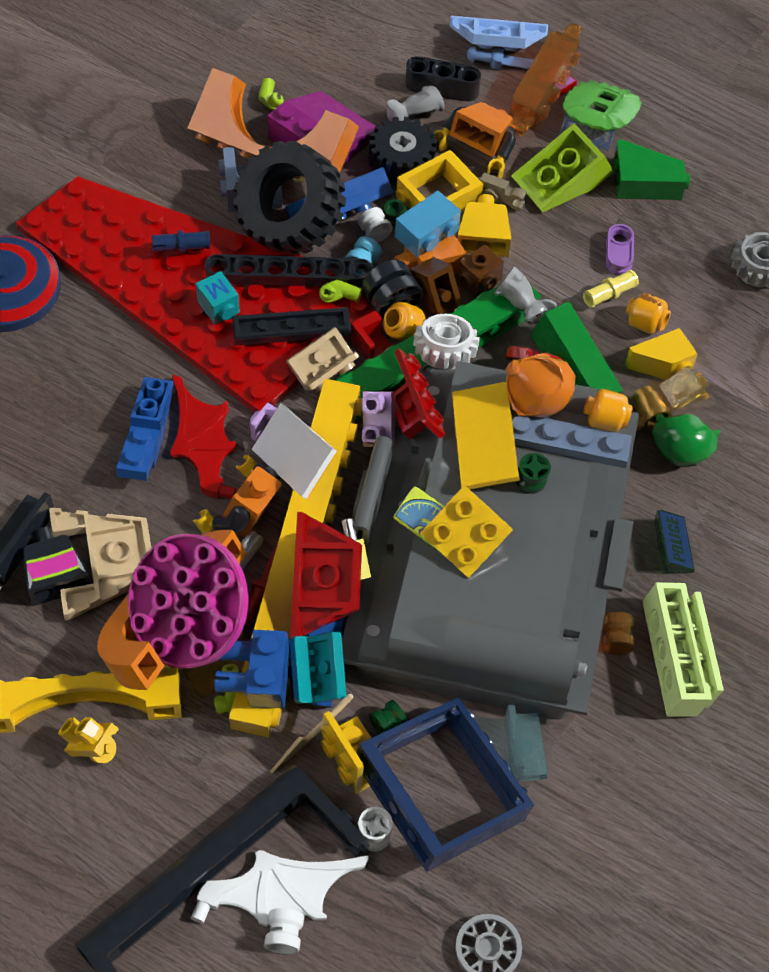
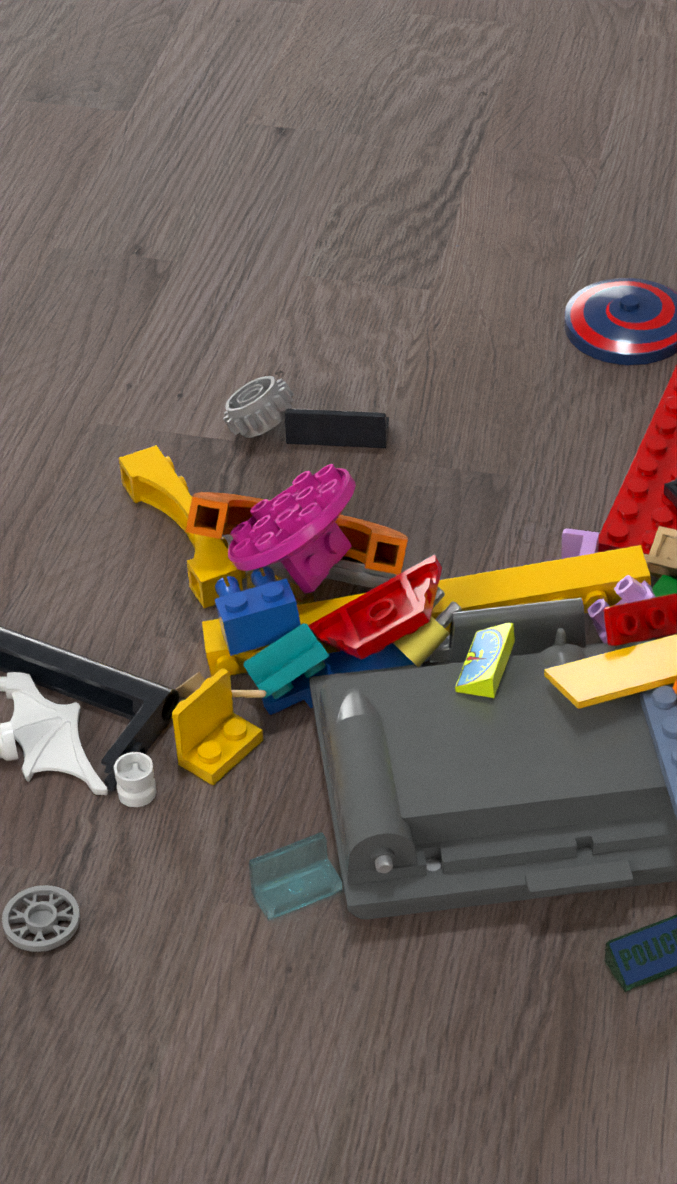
camera: 75 degrees right, 15 degrees down
(52, 566) = (312, 451): black torso -> none
(89, 739) = (137, 539): yellow hips -> none
(115, 550) = (377, 488): tan wing -> none
(146, 429) = (522, 468): blue slope -> none
(203, 440) = (535, 515): red animal -> none
(248, 502) = (473, 552): torso -> none
(294, 450) = (521, 560): white piece -> none
(387, 718) = (267, 754): dark green wheel -> none
(402, 808) = (241, 756): dark blue window -> none
(466, 531) = (485, 686): yellow hinge -> none
(539, 468) = (611, 720): dark green wheel -> none
(618, 633) = (484, 925): clear orange wheel -> none
(662, 609) = (486, 983): yellowish green brick -> none

